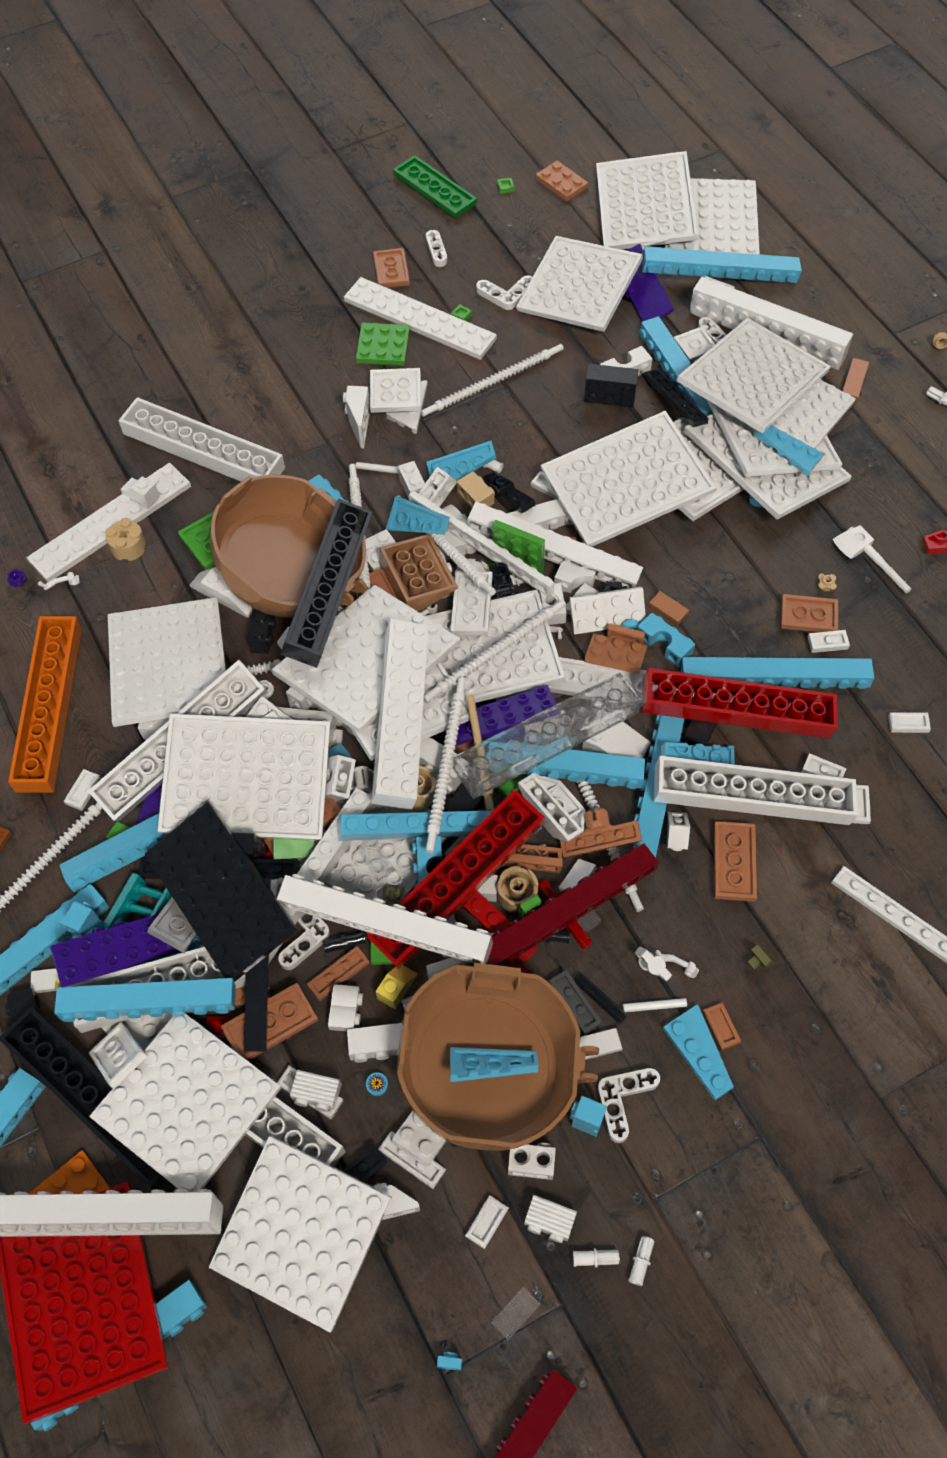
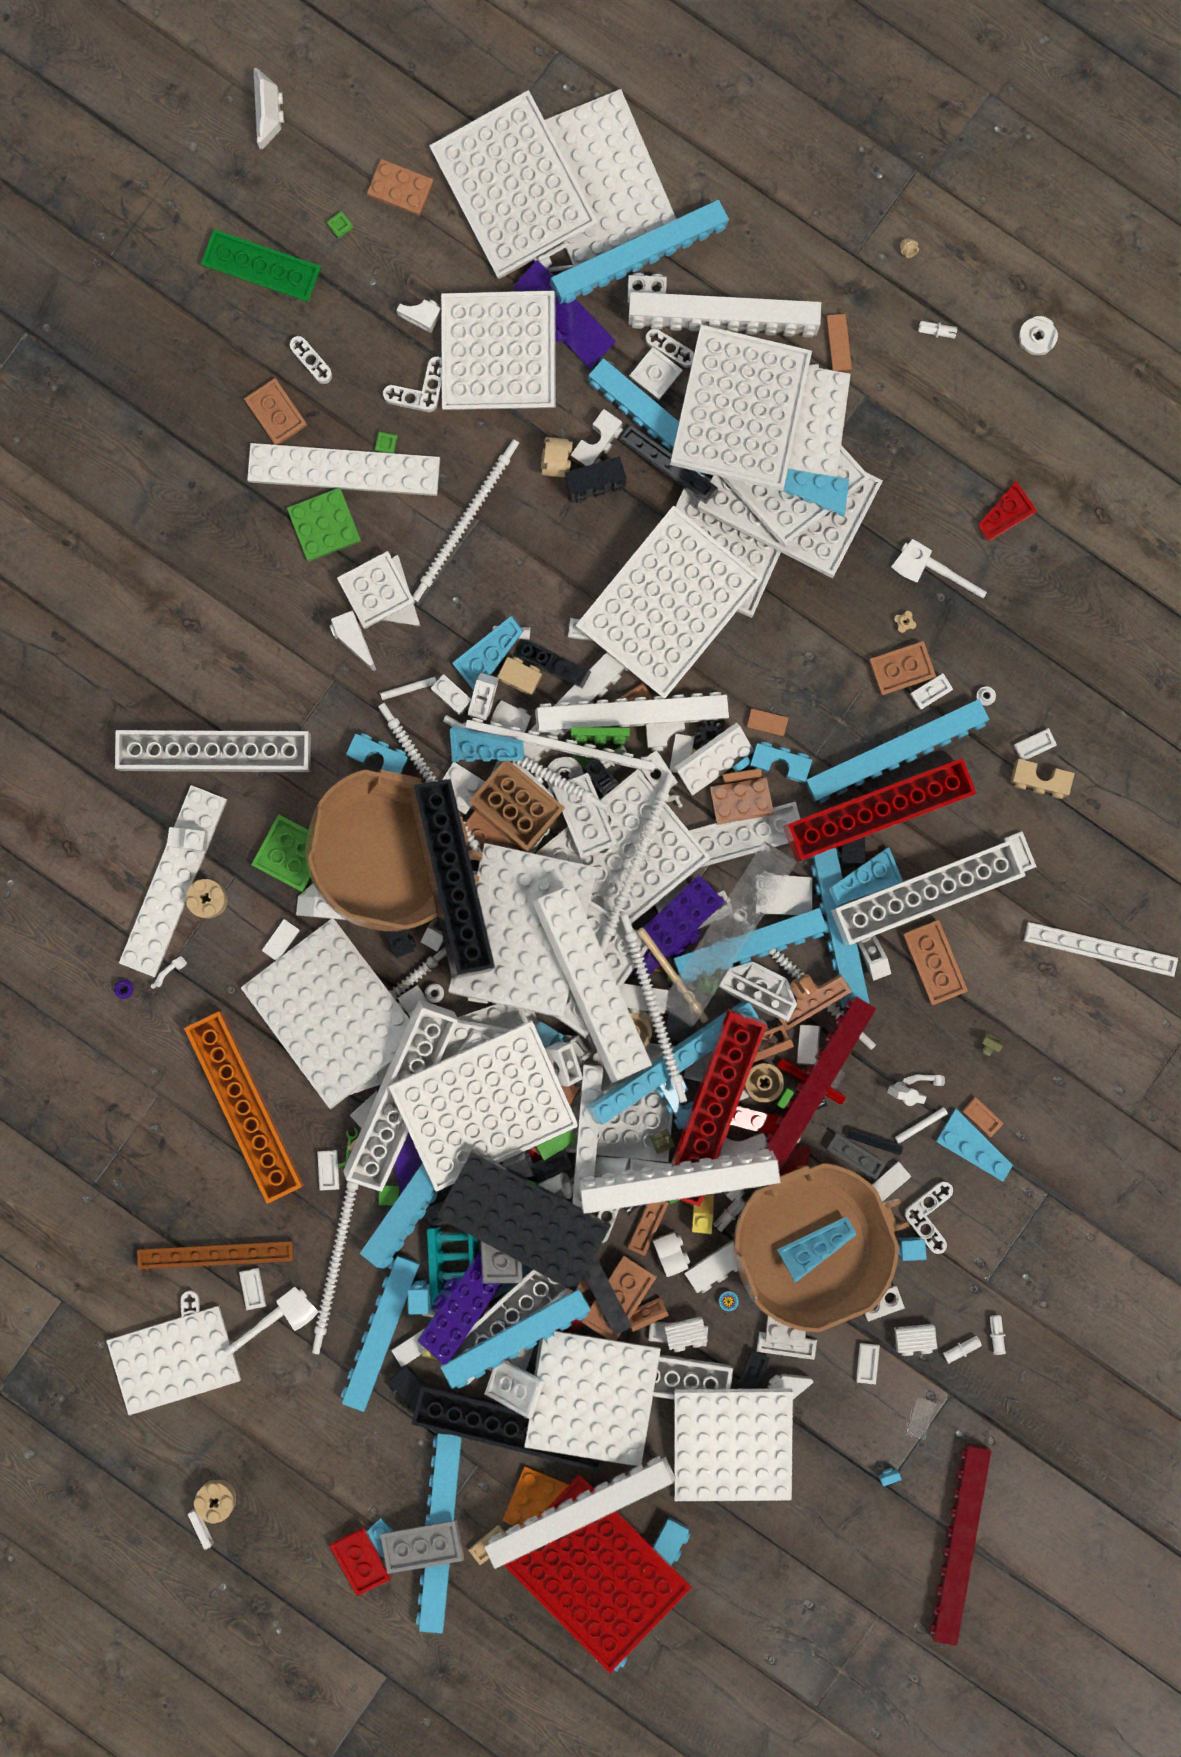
camera: 30 degrees left, 25 degrees up
(165, 596) = (281, 940): none -> white tile
(289, 1055) = (648, 1314): none -> nougat plate
(492, 109) = (267, 108): none -> white wedge
(532, 249) = (422, 315): none -> white arch
(586, 355) = (555, 457): none -> tan brick
(820, 766) = (977, 835): white plate -> none
(879, 669) = (986, 702): none -> white plate
(917, 760) = (1025, 776): none -> tan arch

